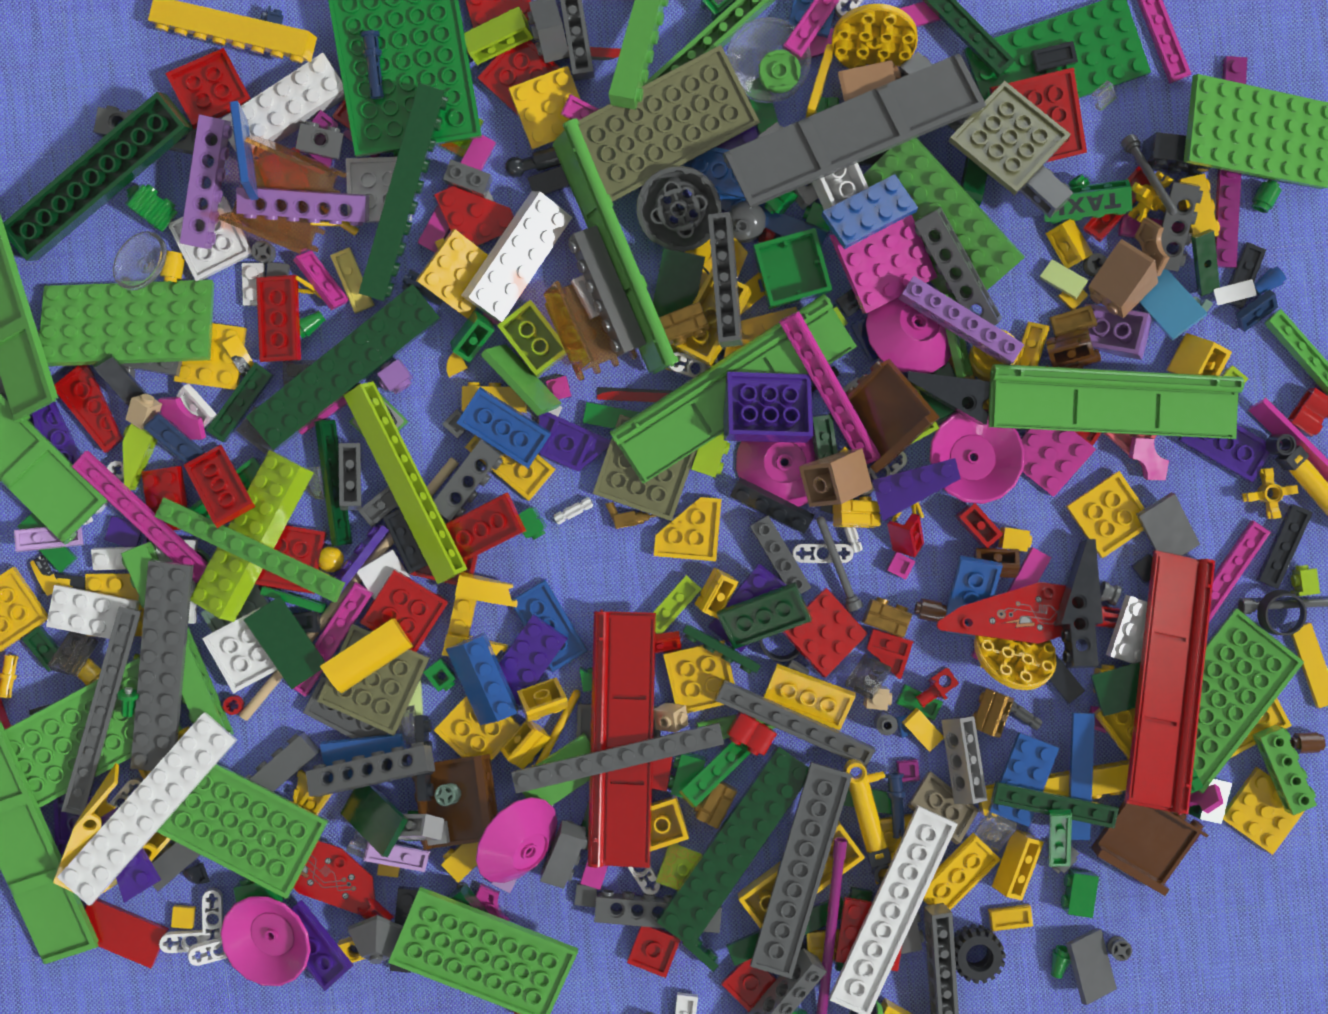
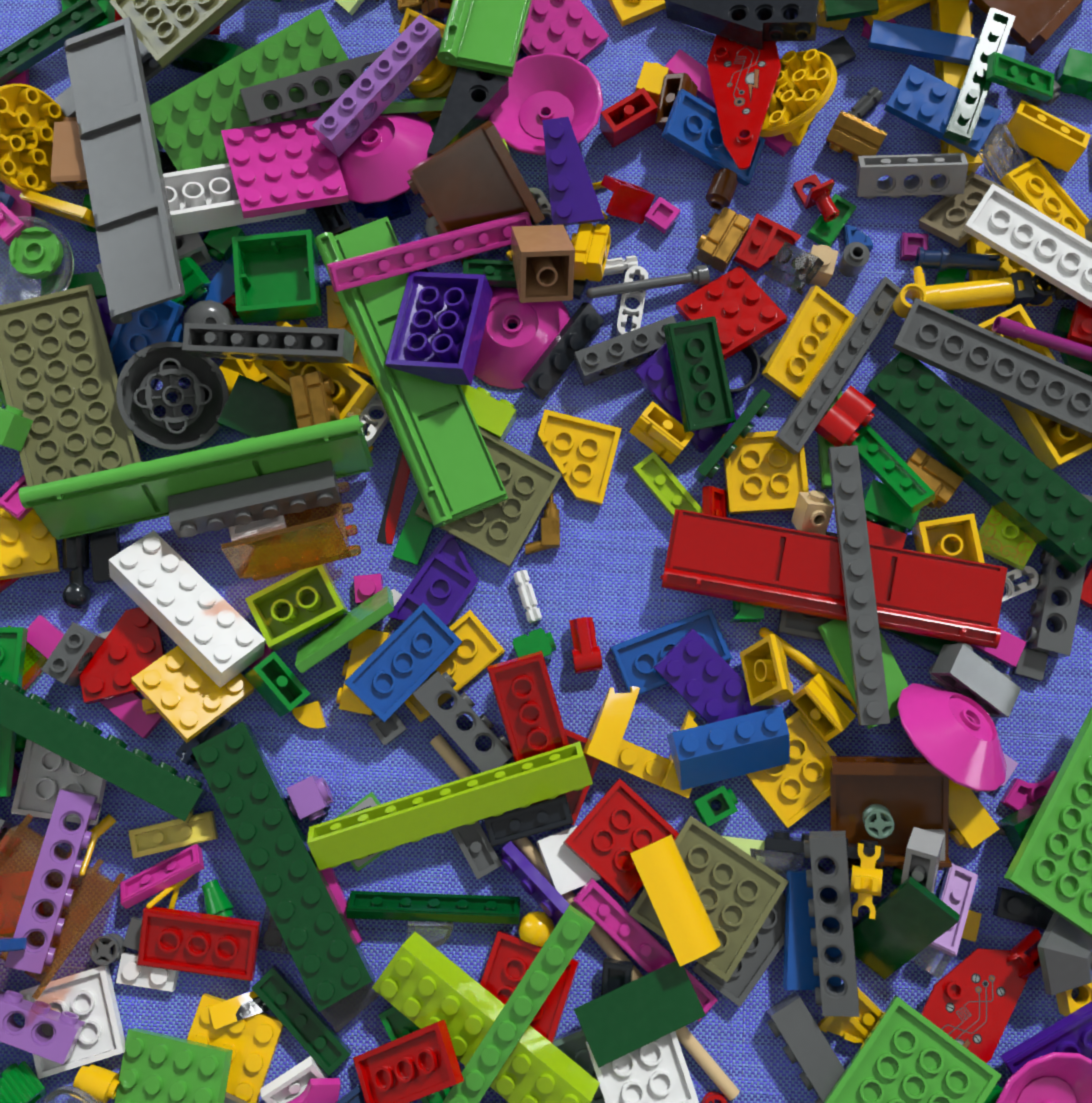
camera: 80 degrees left, 10 degrees down
(294, 599) = (581, 991): green tile -> none
(350, 476) = (429, 880): dark grey brick -> none
(402, 790) = (866, 881): none -> yellow pin
(537, 562) = (585, 649): none -> red piece
(869, 211) = (225, 167): plate -> none
(923, 730) = (866, 219): yellow tile -> none

